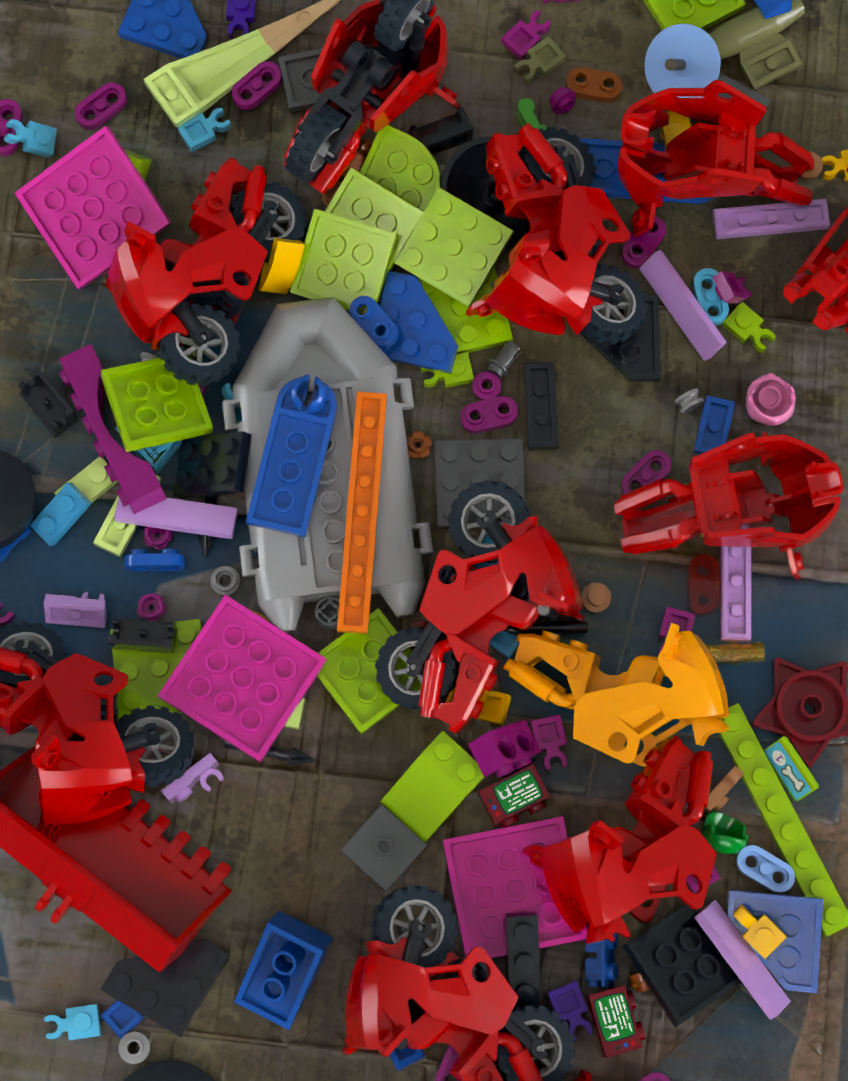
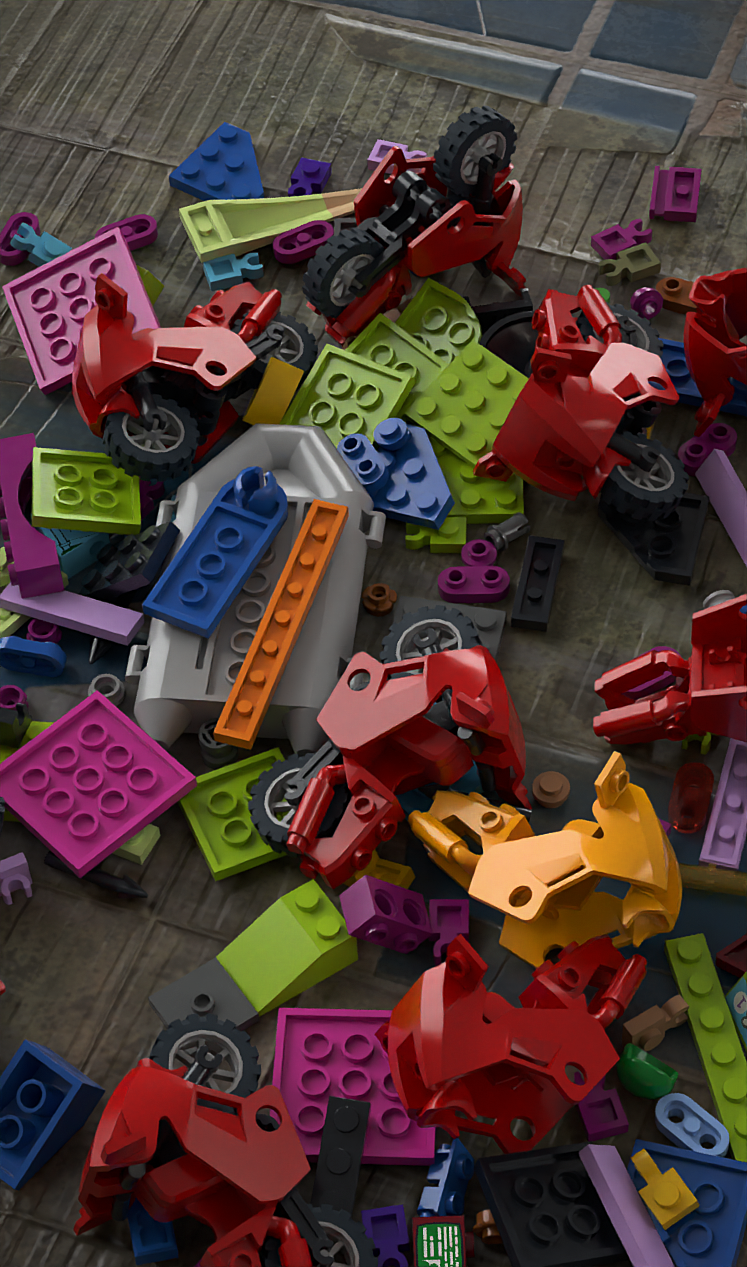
camera: 20 degrees right, 25 degrees down
(391, 290) = (391, 434): none -> blue plate
(514, 796) = (380, 975): brick -> none

